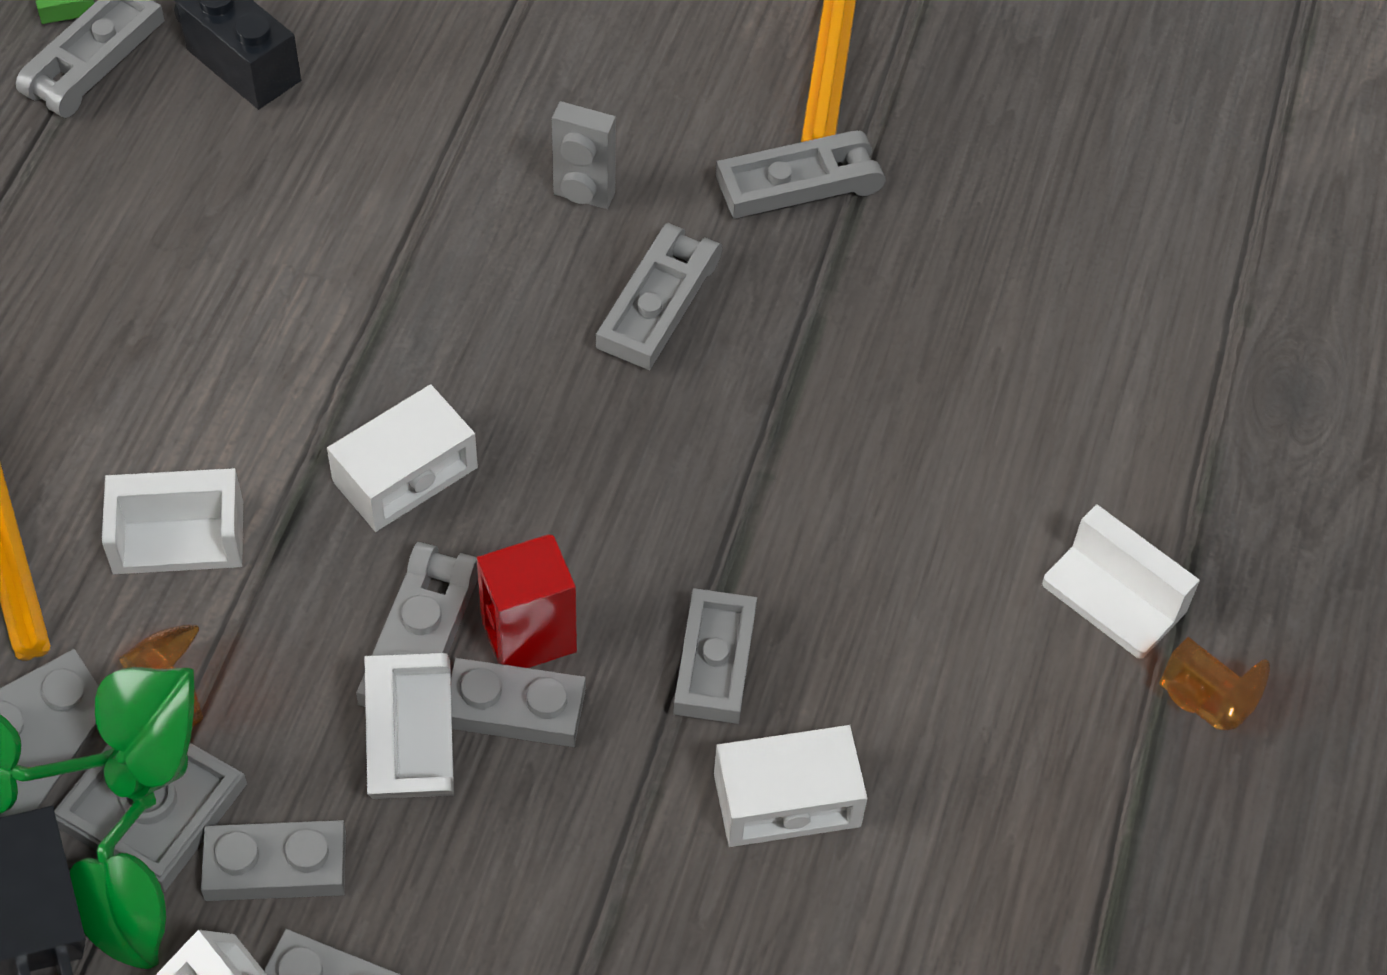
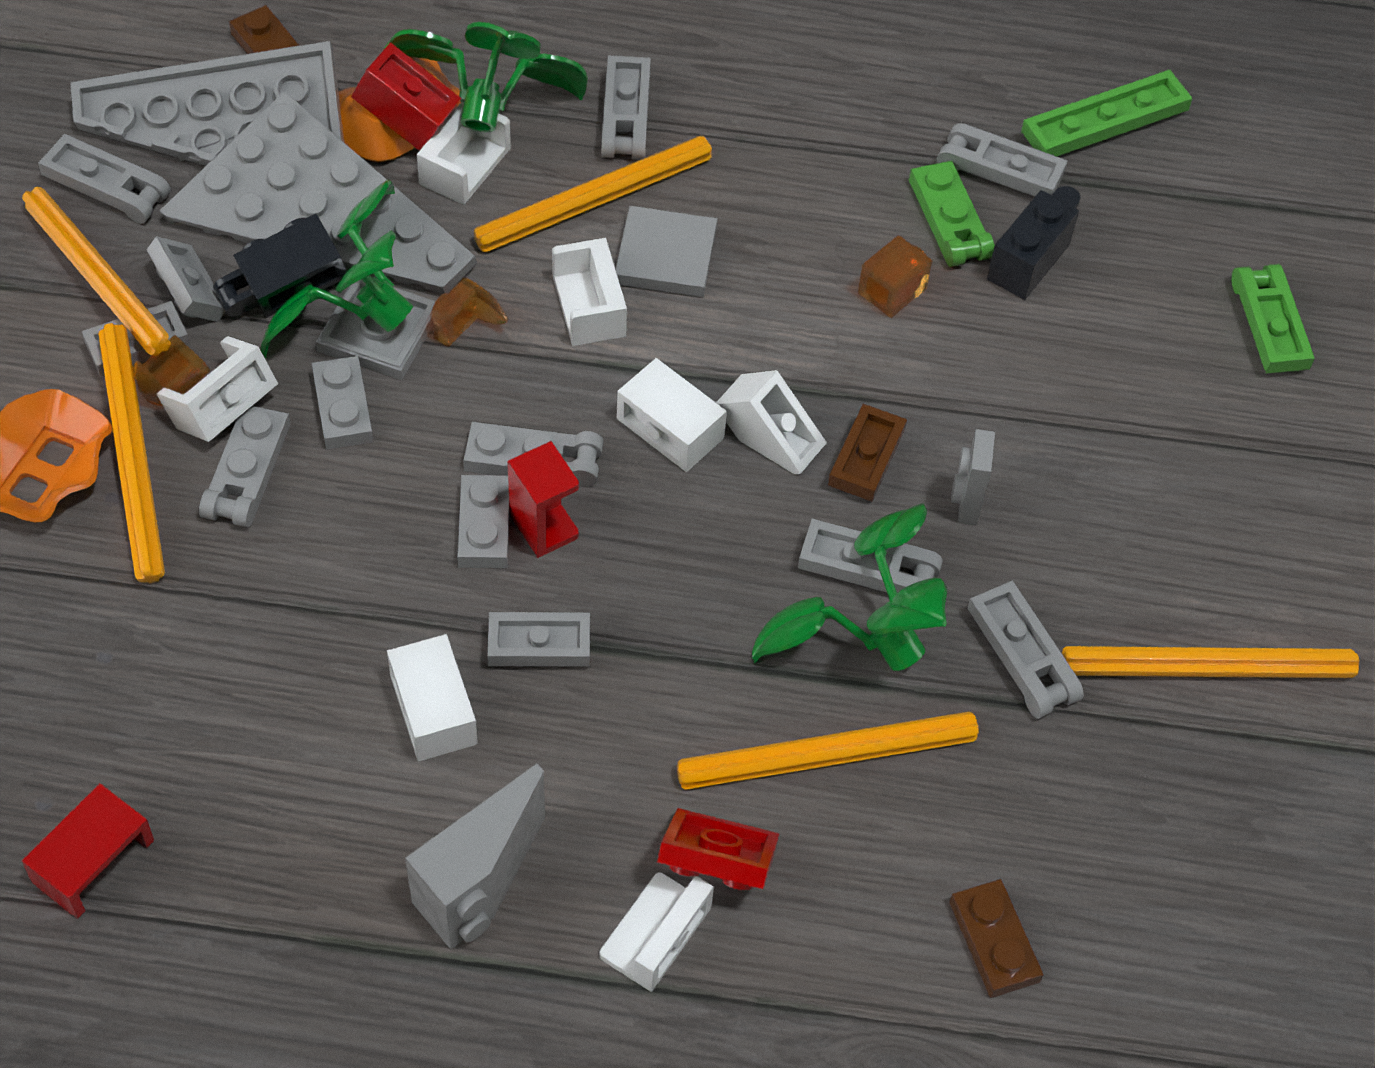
camera: 80 degrees right, 0 degrees up
(117, 425) = (666, 251): none -> light grey tile
(154, 118) = (950, 213): none -> bright green plate
(245, 186) = (895, 276): none -> clear orange brick
(409, 726) = (438, 448): white panel -> none
(434, 349) = (771, 420): none -> white slope
(503, 266) = (867, 452): none -> reddish brown plate
(808, 217) = (891, 625): none -> green plant
(904, 389) = (827, 750): none -> light orange axle
(1042, 495) = (718, 849): none -> red plate
(1046, 739) = (469, 866): none -> light grey slope
(1143, 276) = (996, 938): none -> reddish brown plate
(1210, 688) = (565, 992): clear orange plate -> none

